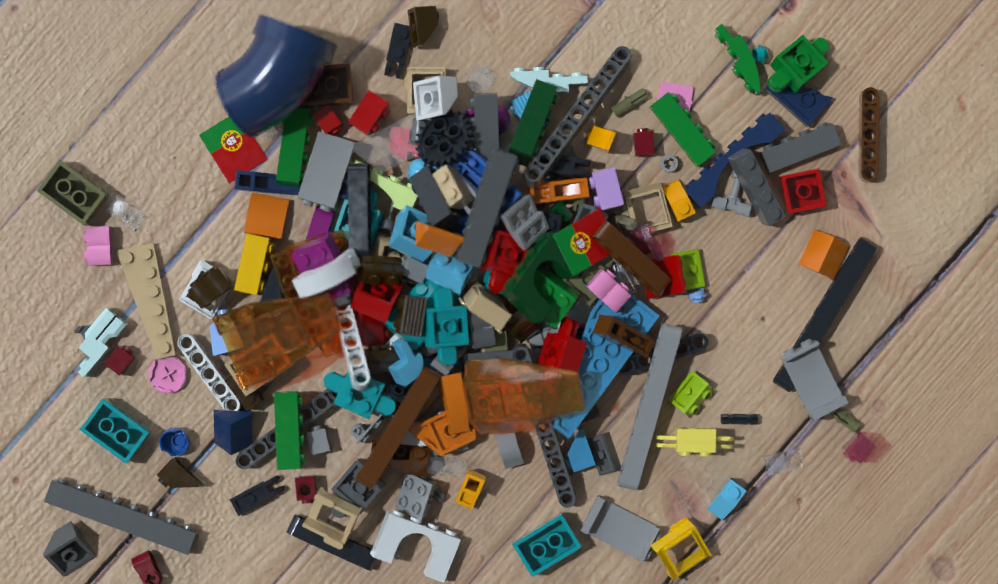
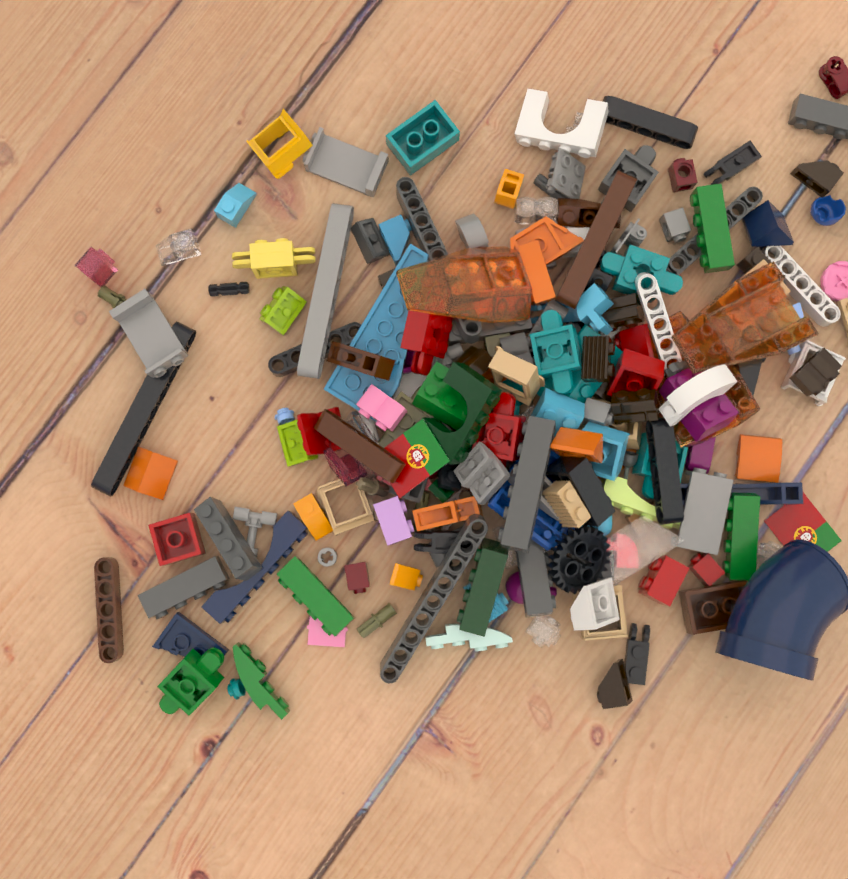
camera: 165 degrees right, 5 degrees down
(254, 264) = (772, 396): yellow brick -> none
(331, 534) = (652, 126): tan piece -> none

